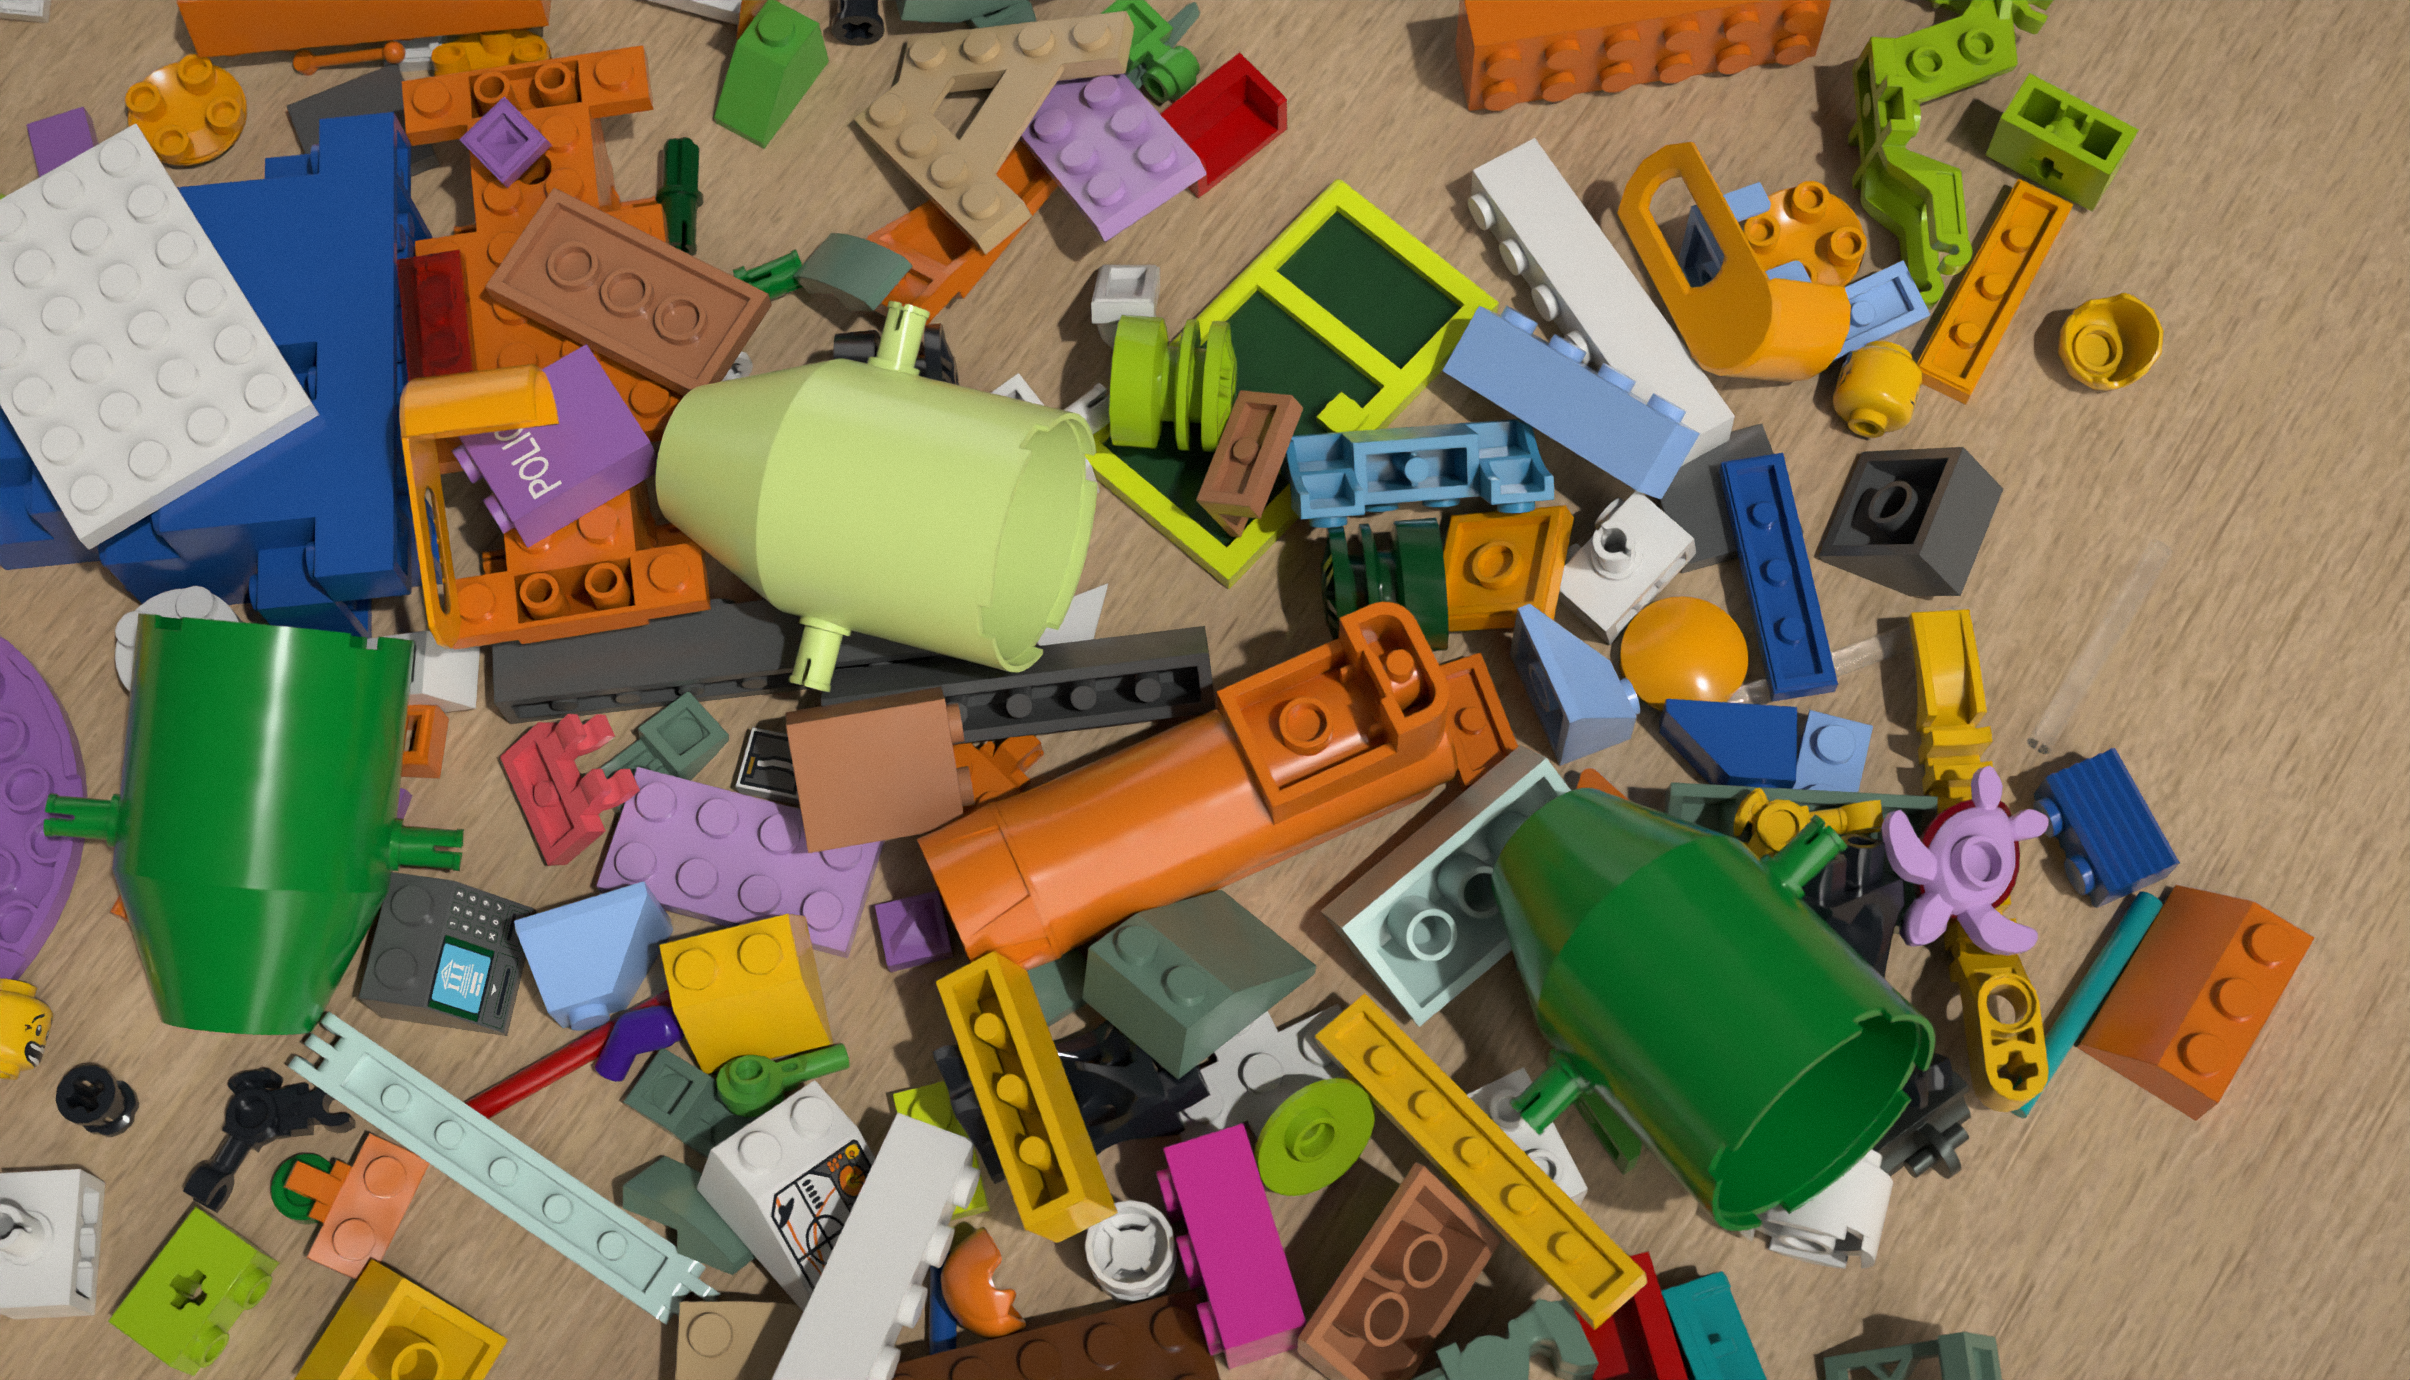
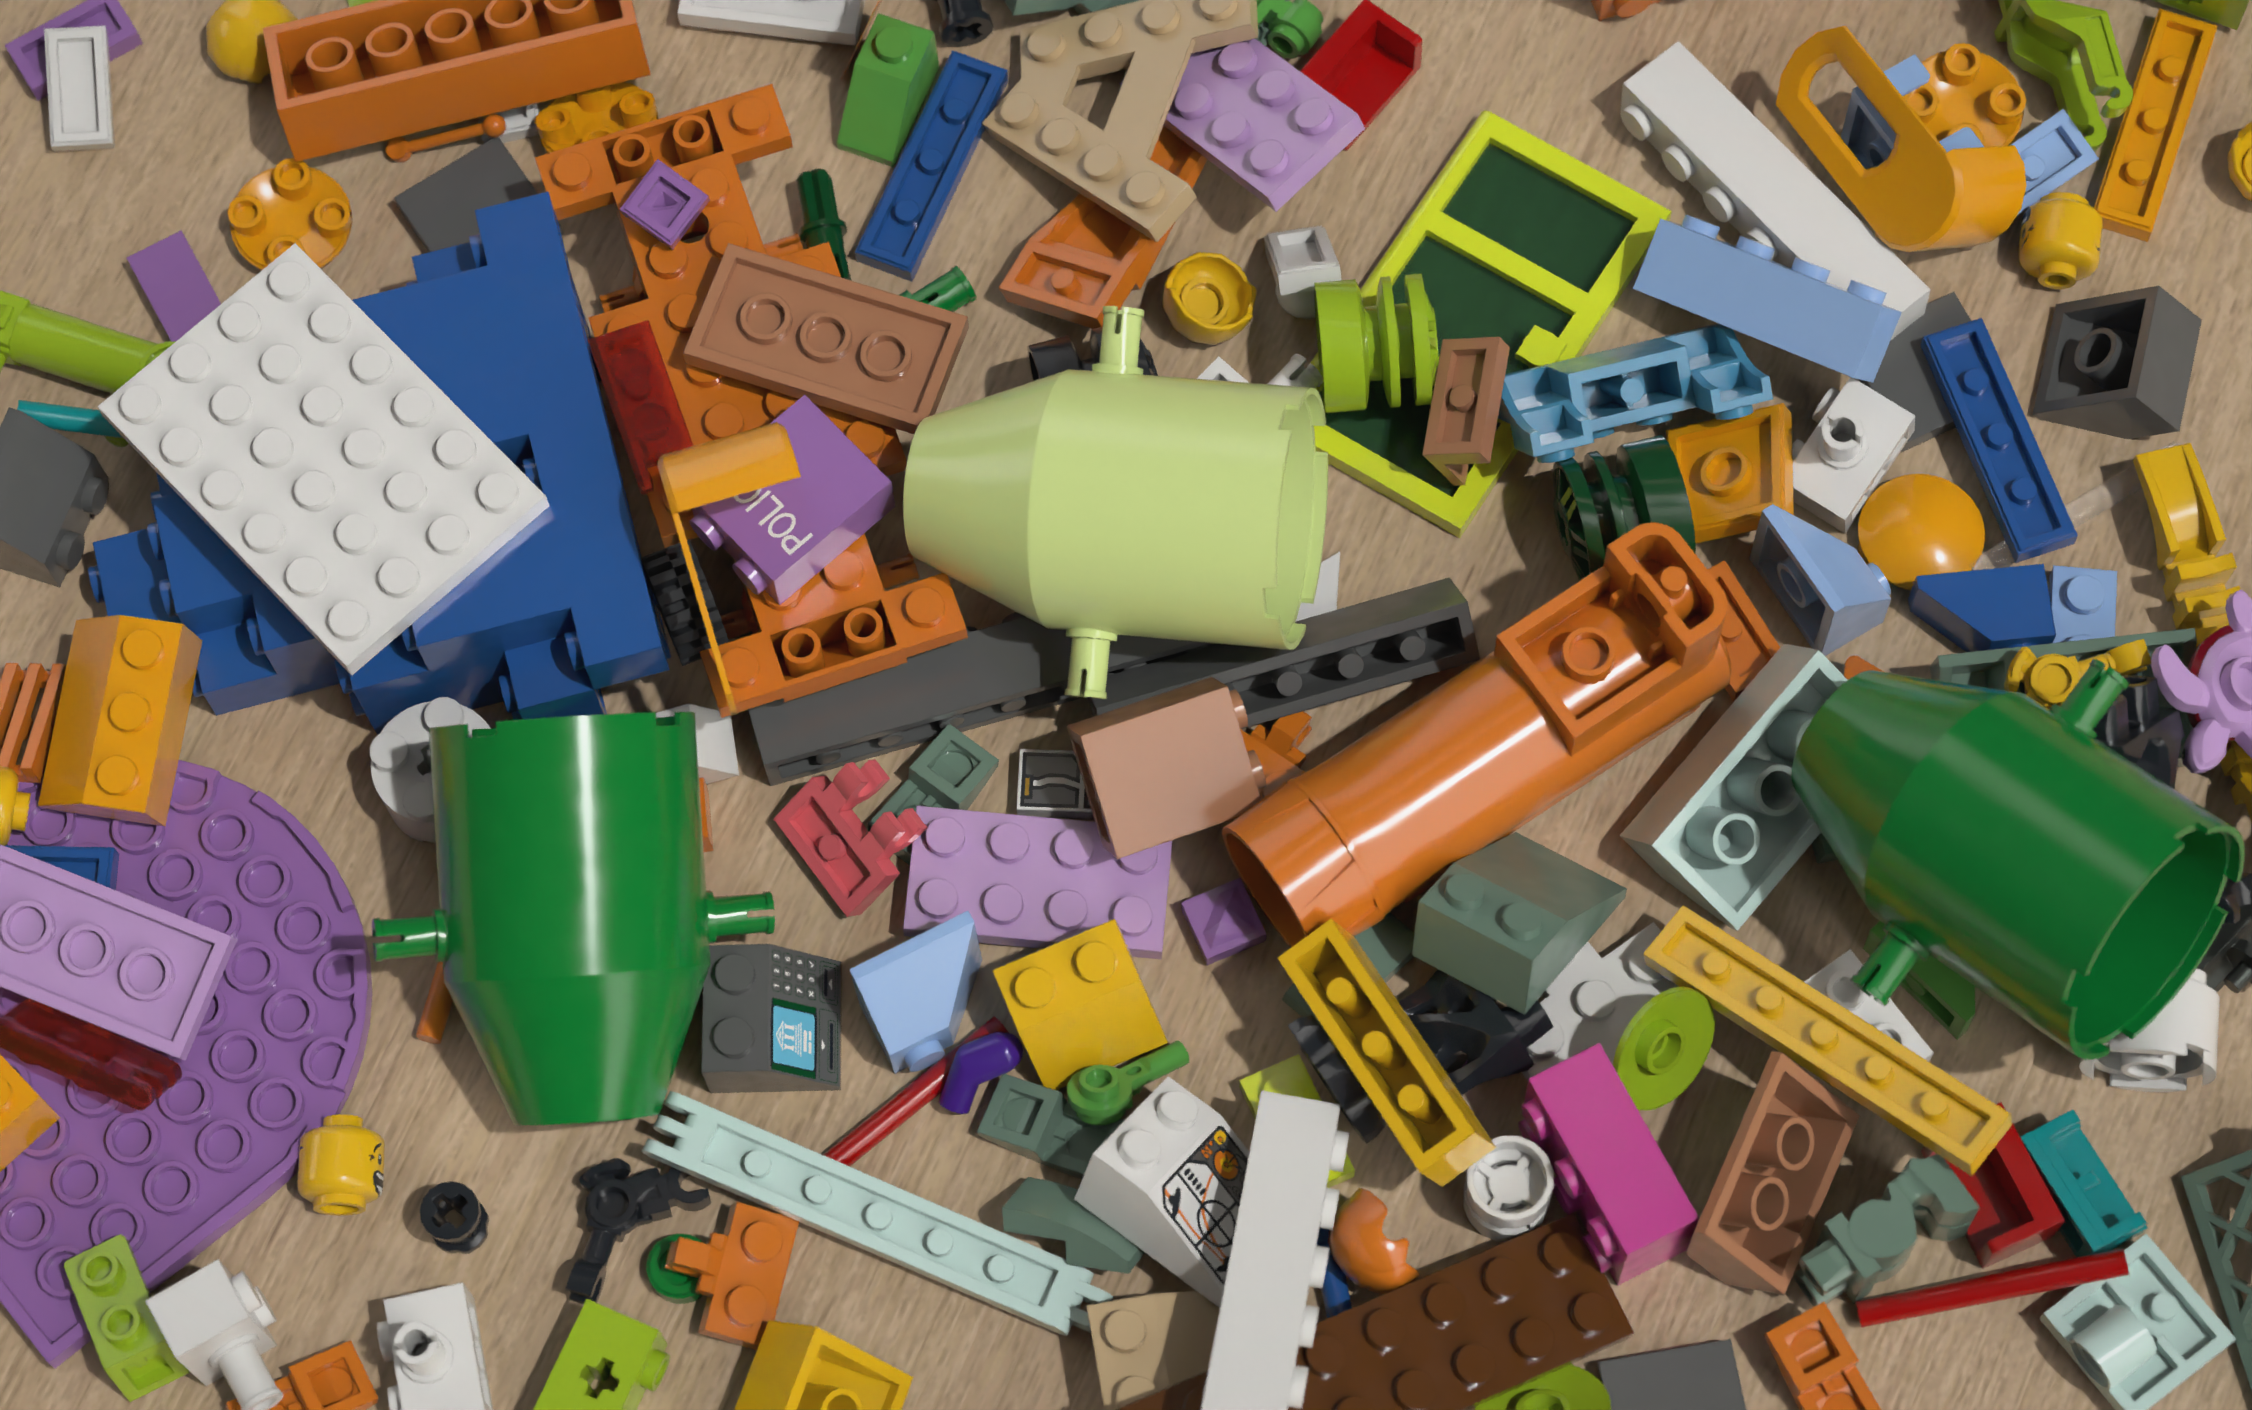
camera: 10 degrees left, 0 degrees up
(462, 528) = (678, 602): none -> black tyre
(797, 153) = (931, 166): none -> blue tile
(853, 271) = (1028, 277): sand green slope -> none
(1030, 317) = (1208, 298): none -> yellow hair

